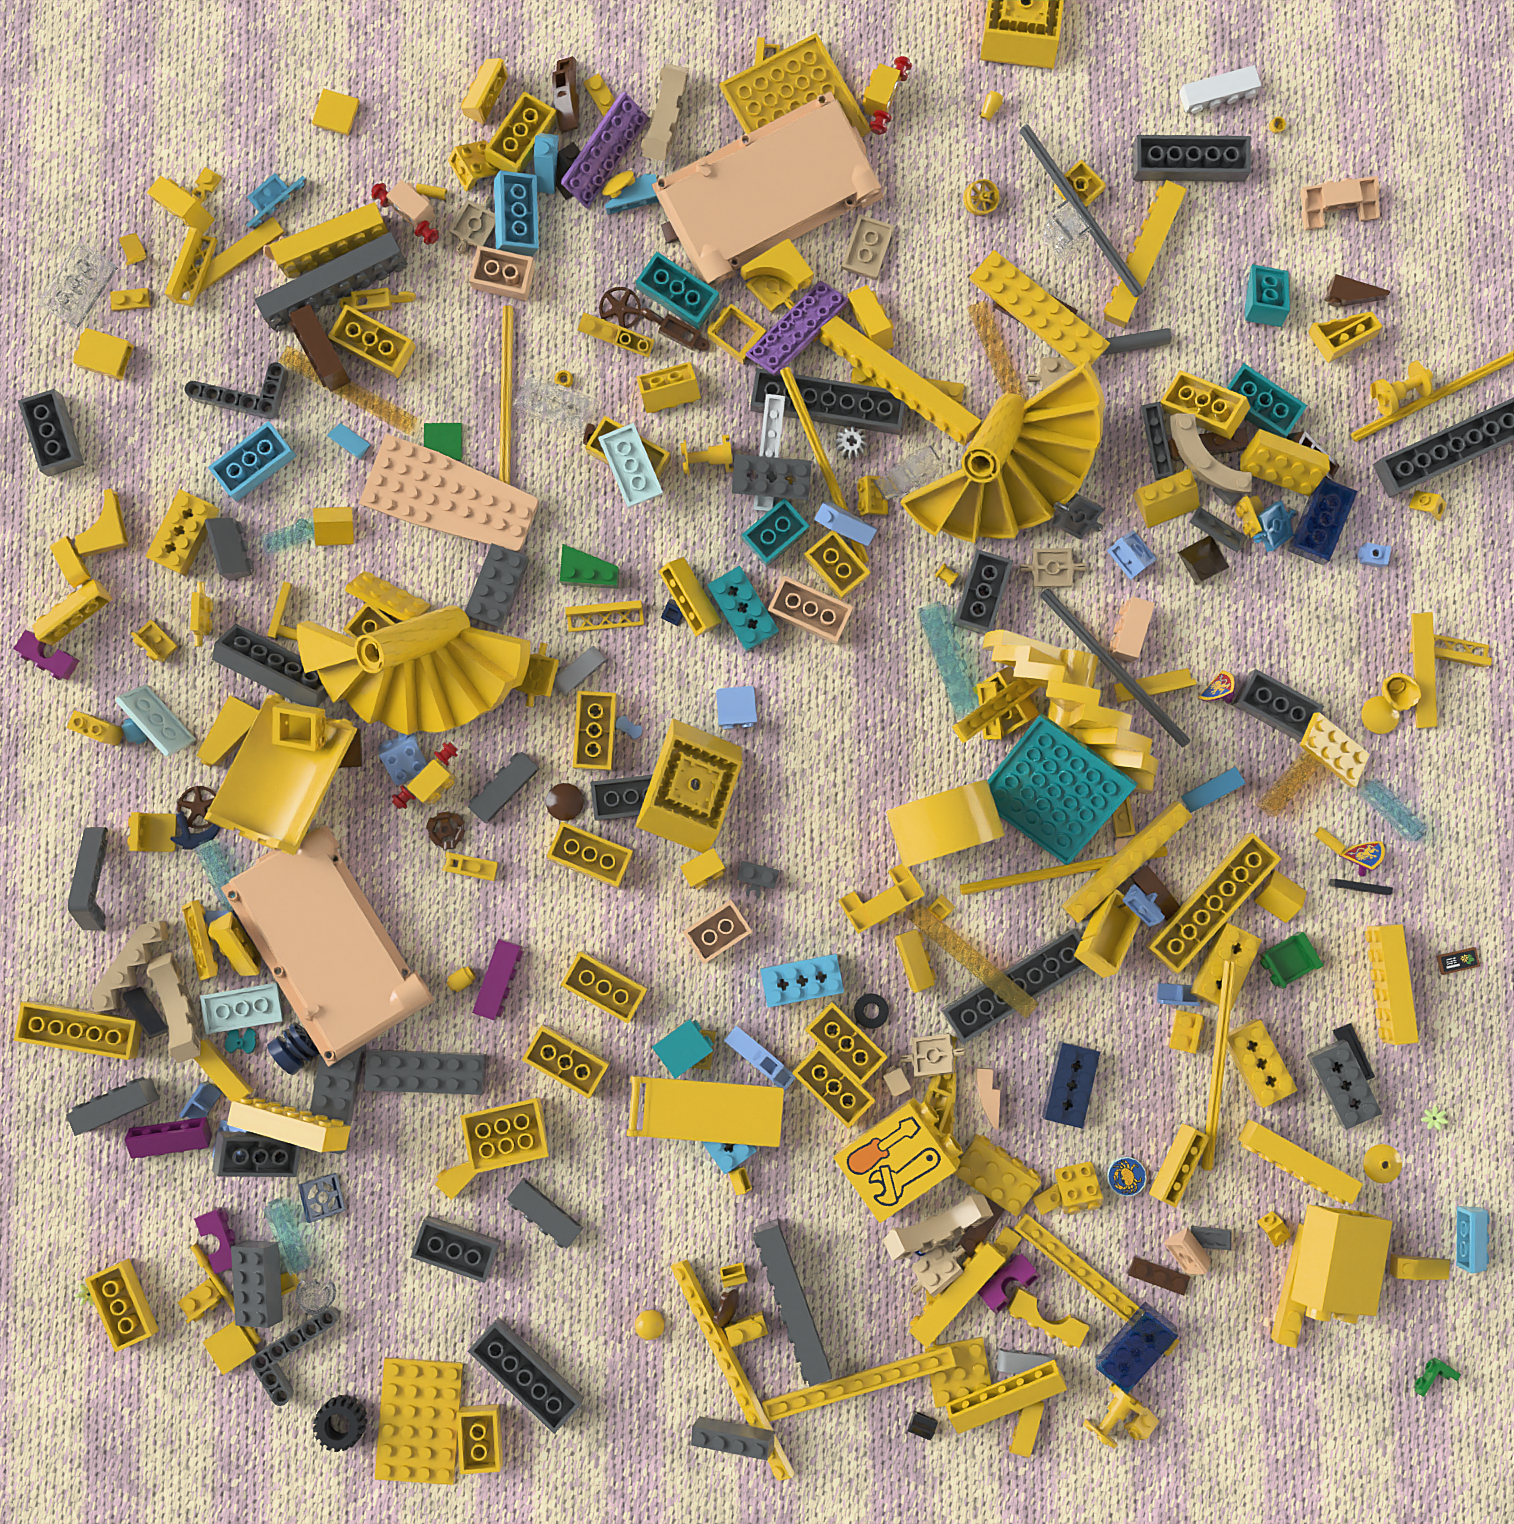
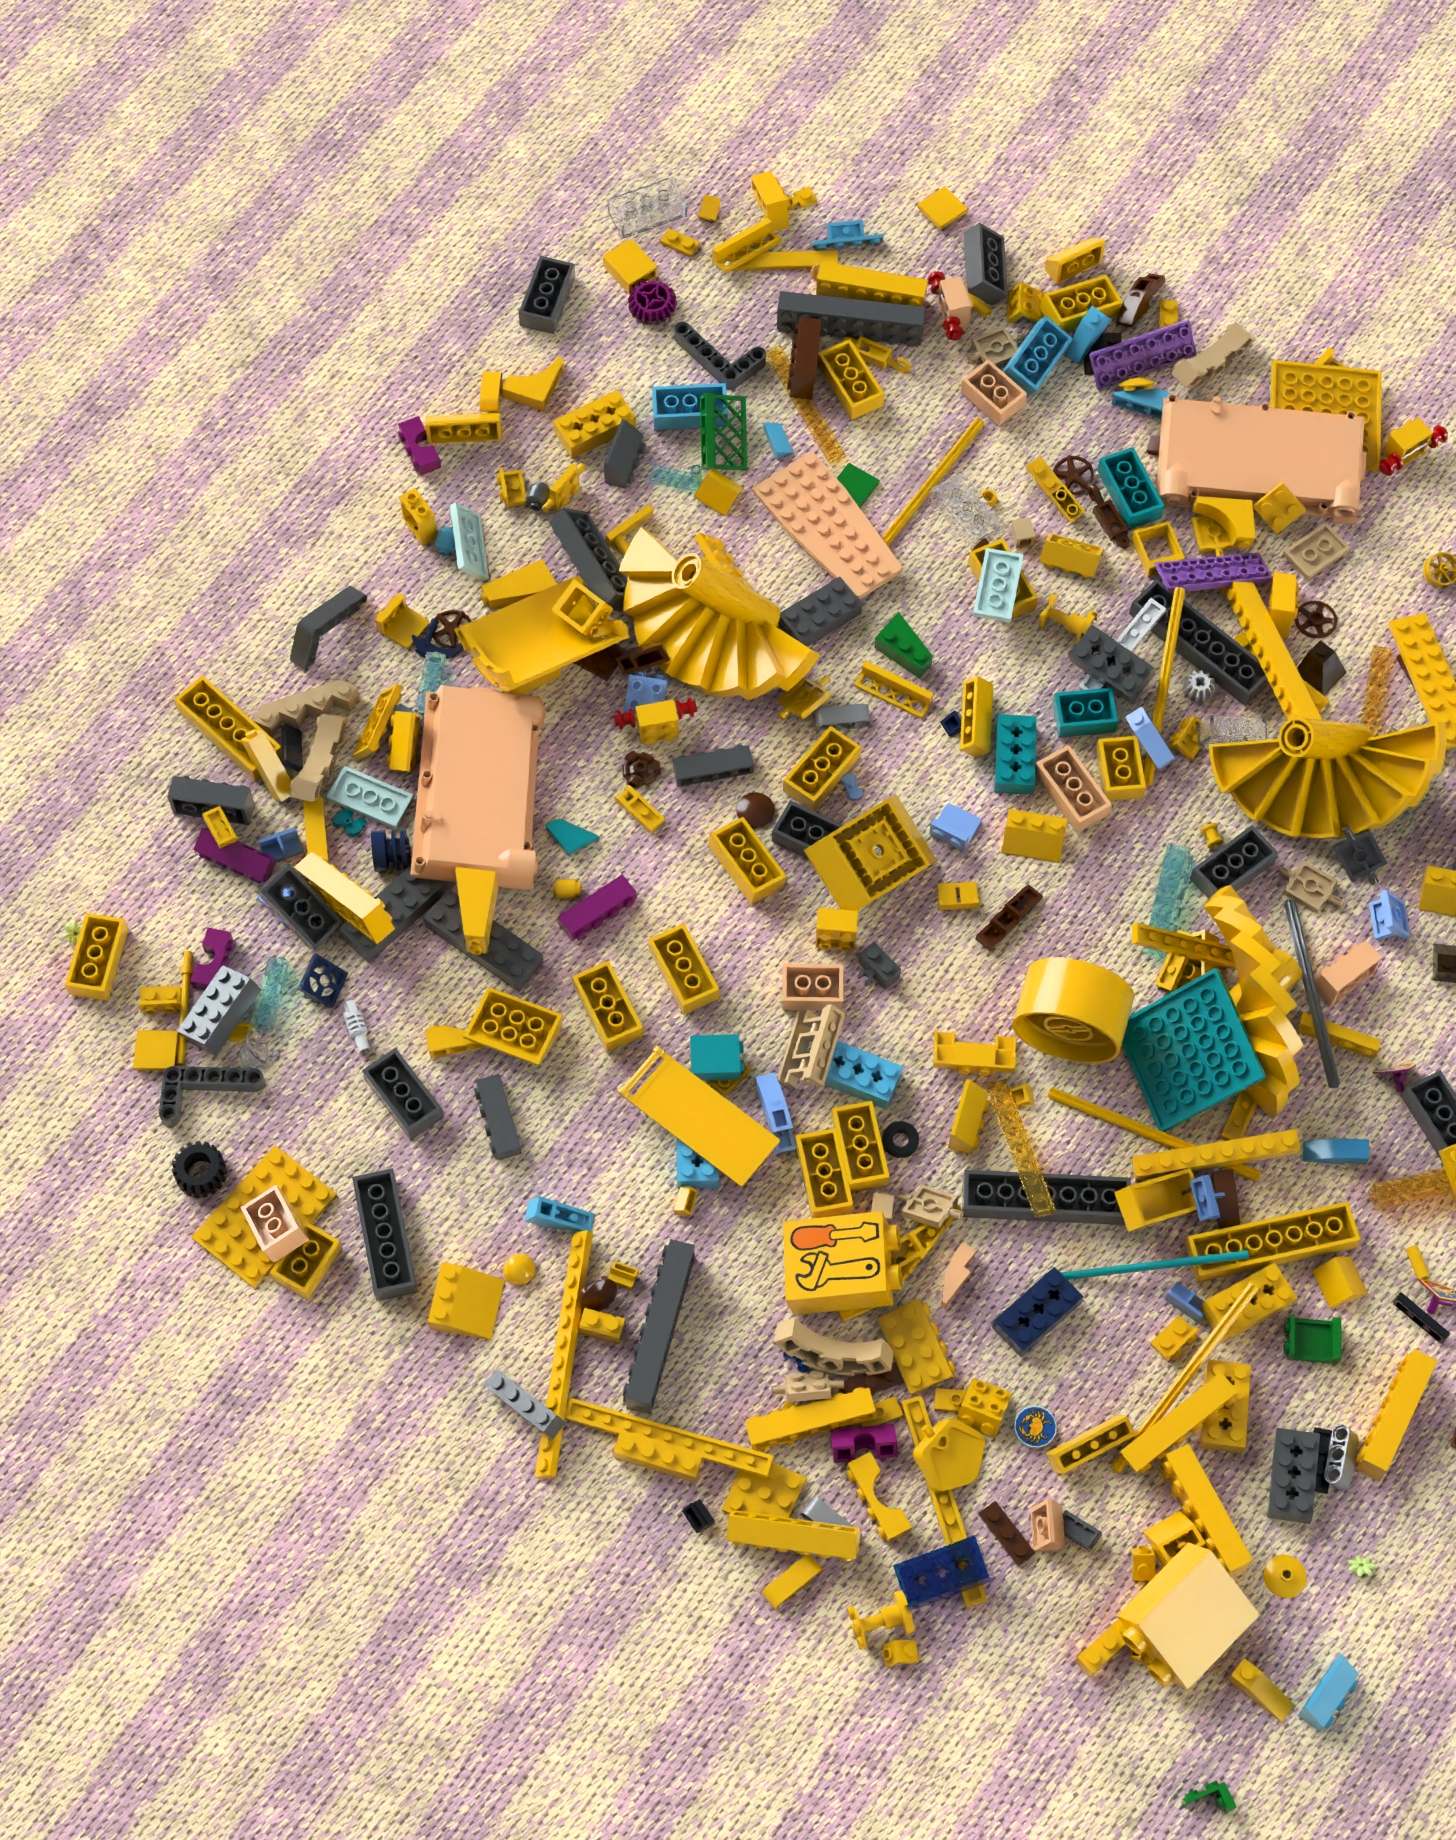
camera: 30 degrees right, 20 degrees down
(135, 1047) = (267, 764): none -> yellow brick
(138, 1131) = (219, 827): none -> yellow plate
(162, 376) = (656, 307): none -> magenta gear
(182, 635) = (537, 495): none -> dark grey head
(284, 475) = (708, 429): none -> green fence
(377, 1214) = (356, 1026): none -> white hinge
(378, 734) = (642, 657): none -> reddish brown slope
(404, 1063) = (477, 903): none -> yellow slope
(411, 148) = (985, 264): none -> dark grey brick
(430, 929) = (569, 835): none -> teal slope
(435, 1437) = (274, 1223): none -> light nougat brick
(614, 393) = (1022, 532): none -> tan brick
(627, 1382) = (465, 1301): none -> yellow slope
(650, 1262) = (558, 1215): none -> medium azure slope
(763, 985) = (814, 1065): none -> tan fence
(771, 774) = (968, 896): none -> yellow piece
(805, 673) = (1034, 835): none -> yellow slope
(814, 228) = (1279, 507): none -> yellow plate
(831, 759) = (1009, 917): none -> reddish brown slope
(861, 1405) = (657, 1457): none -> yellow brick
(906, 312) = (1316, 619): none -> reddish brown wheel
(939, 359) = (1321, 668): none -> dark brown slope
(1079, 1247) = (949, 1454): none -> yellow animal
(1137, 988) = (1146, 1266): none -> teal piece
(1239, 1109) = (1179, 1423): none -> yellow brick
(1287, 1196) = (1171, 1536): none -> yellow slope
(1367, 1052) = (1338, 1448): none -> light grey beam

